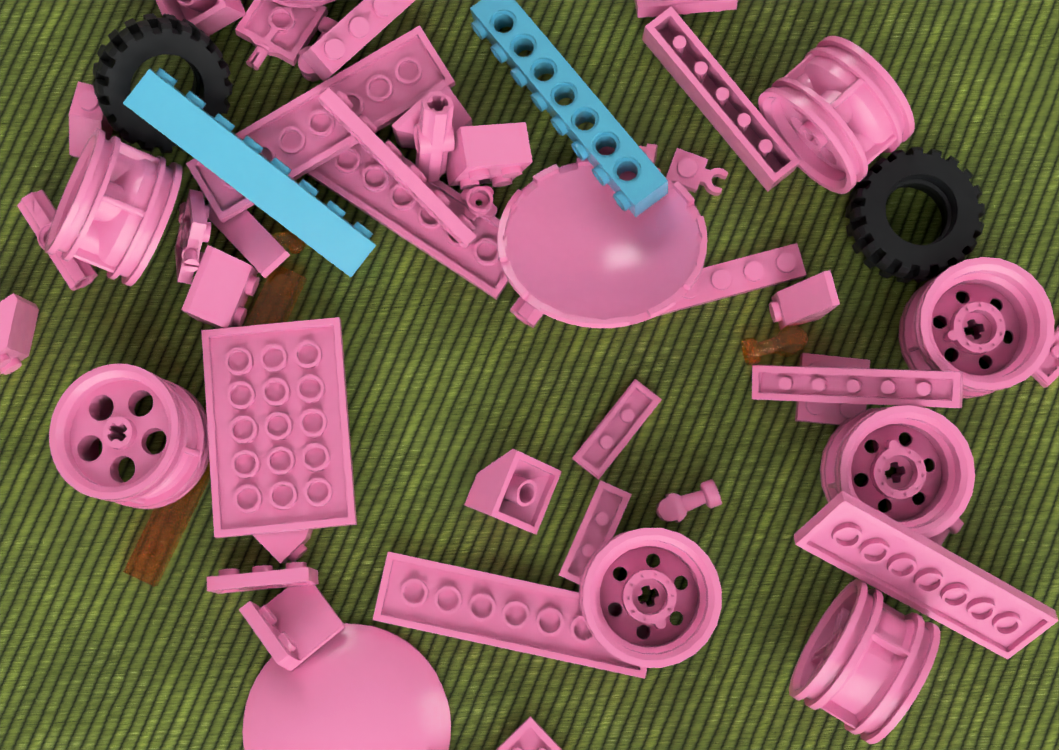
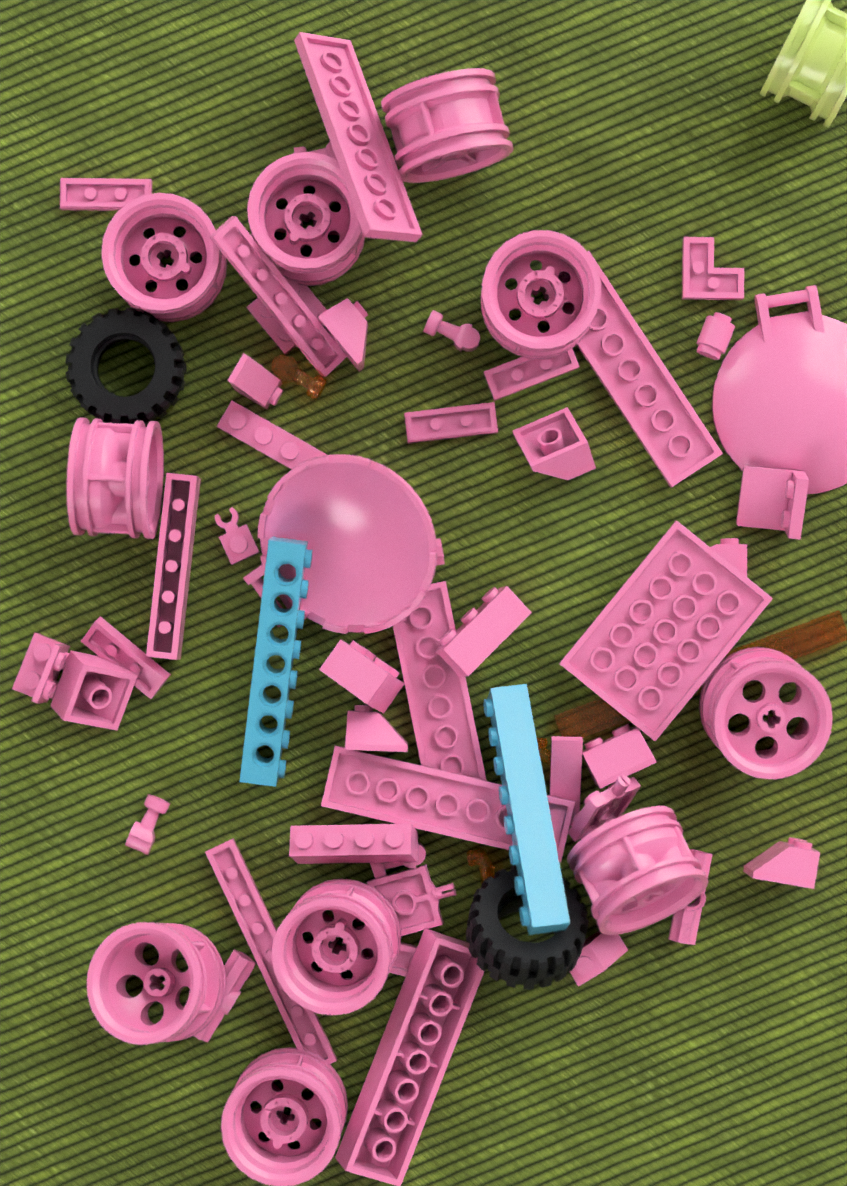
camera: 130 degrees left, 5 degrees up
(247, 110) = (480, 858): none -> clear orange arm
(262, 578) = (766, 546): bright pink plate -> none
(388, 156) = (427, 736): bright pink plate -> none
(427, 285) = (482, 630): none -> bright pink brick
(434, 135) = (387, 717): bright pink piece -> none
(473, 711) = (715, 336): none -> bright pink brick
(482, 194) = (398, 661): bright pink plate -> none
(772, 418) = (348, 329): none -> bright pink slope

